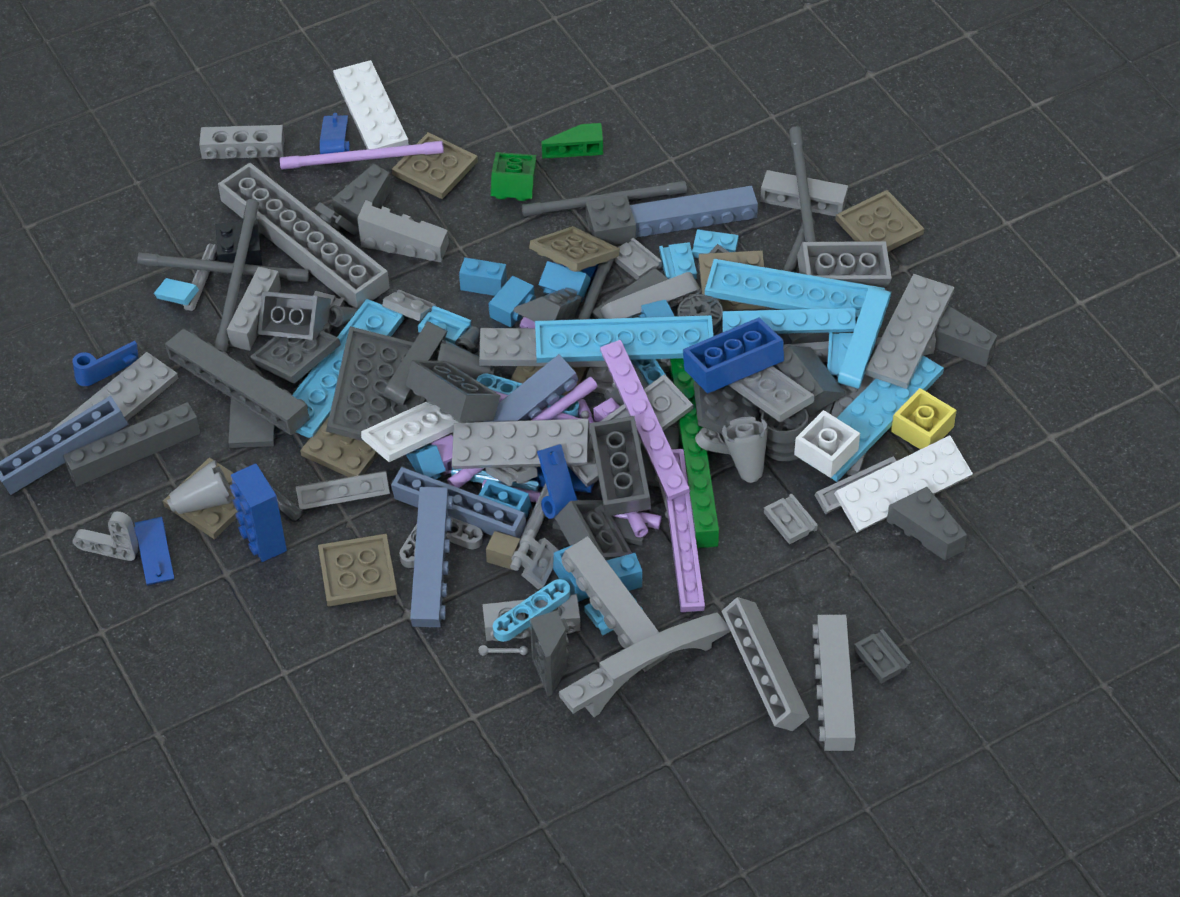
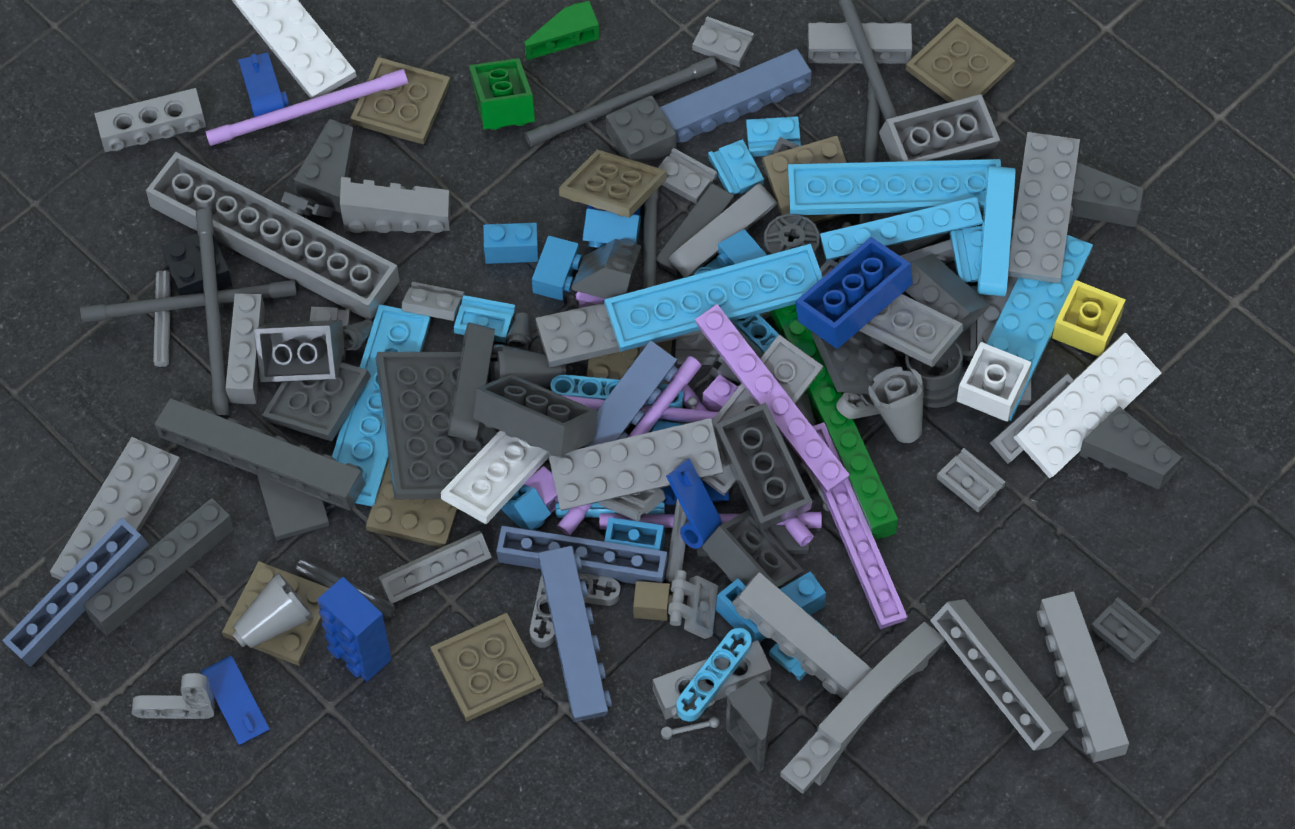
camera: 15 degrees left, 10 degrees up
(89, 370) = (71, 479): blue door -> none
(176, 291) = (140, 347): medium azure tile -> none
(698, 173) = (723, 41): none -> light grey plate

